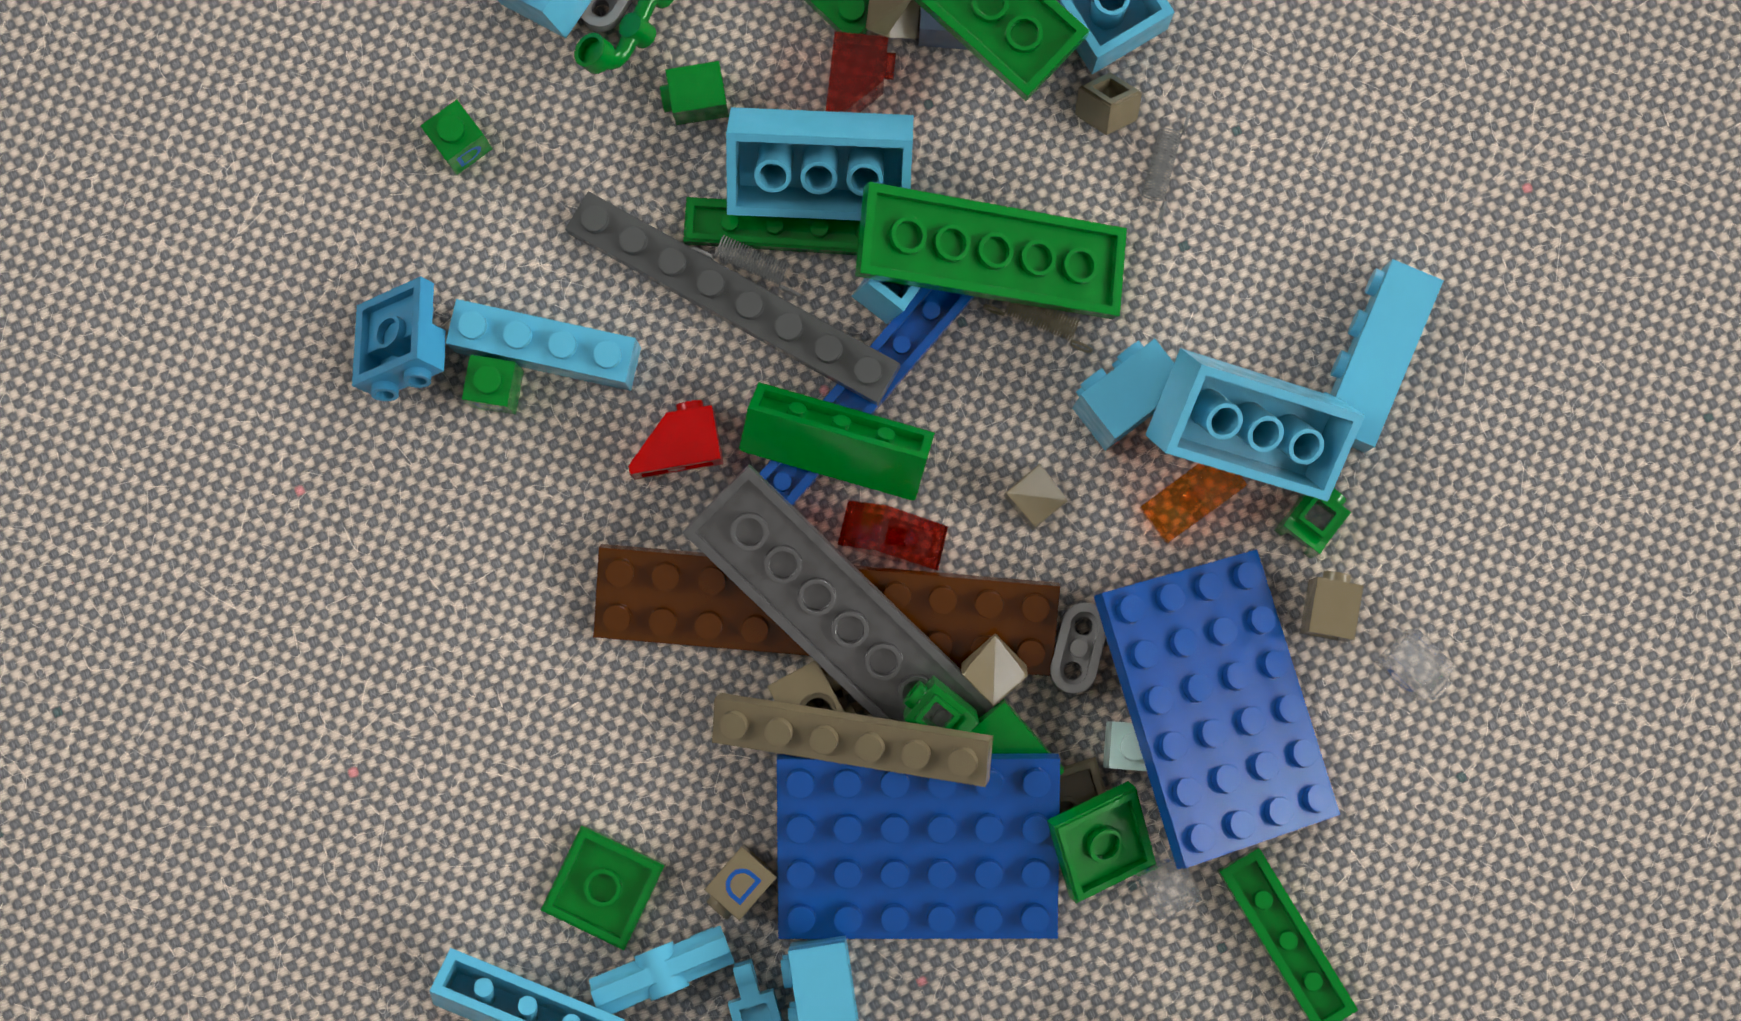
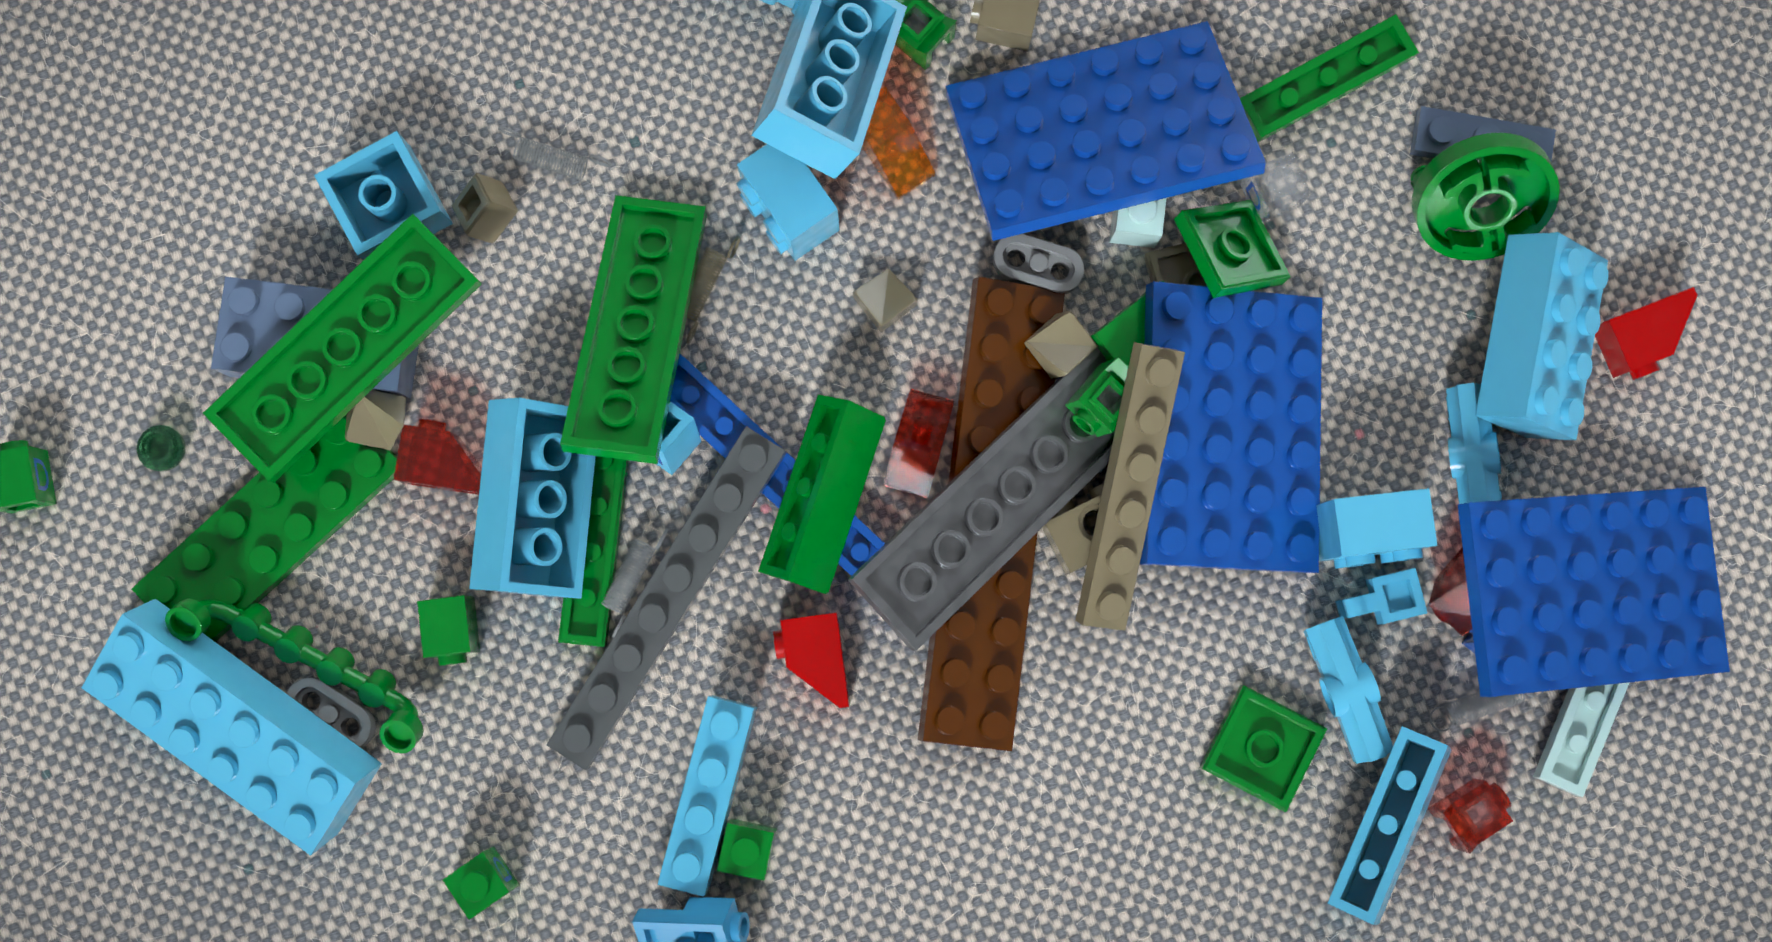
camera: 90 degrees left, 0 degrees up
(739, 884) = (1264, 608): dark tan brick -> none

